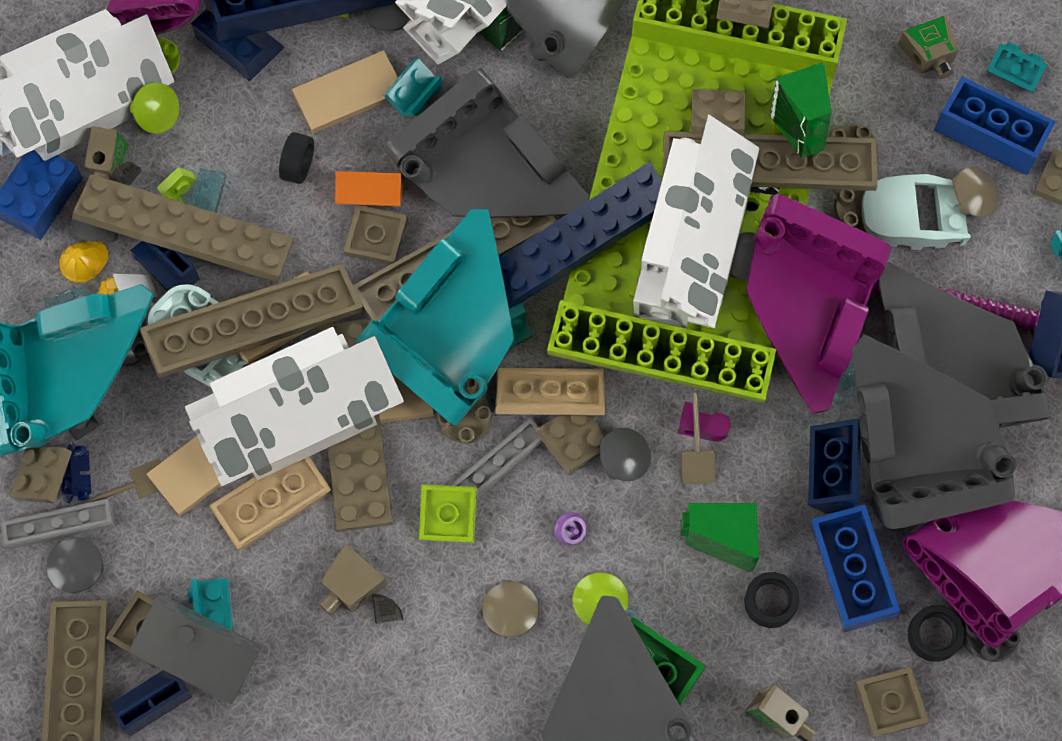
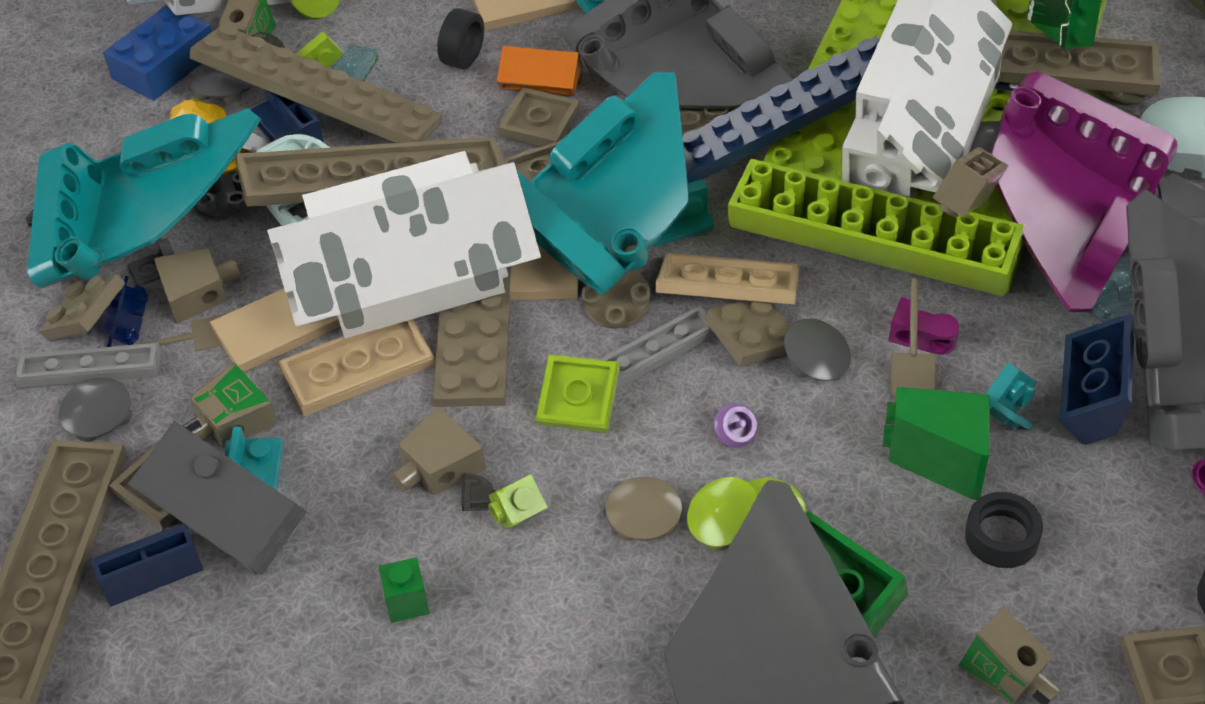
camera: 10 degrees right, 20 degrees down
(124, 436) = (194, 281): none -> dark tan torso
(181, 557) = (228, 403): none -> dark tan torso
(347, 703) = (404, 589): none -> green brick
(416, 617) = (516, 502): none -> lime bracket
(569, 609) = (720, 511): none -> lime dish
(734, 322) = (969, 182): none -> dark tan brick
(768, 498) = (1009, 393): none -> teal bracket
(855, 568) = (1124, 500): blue brick -> none

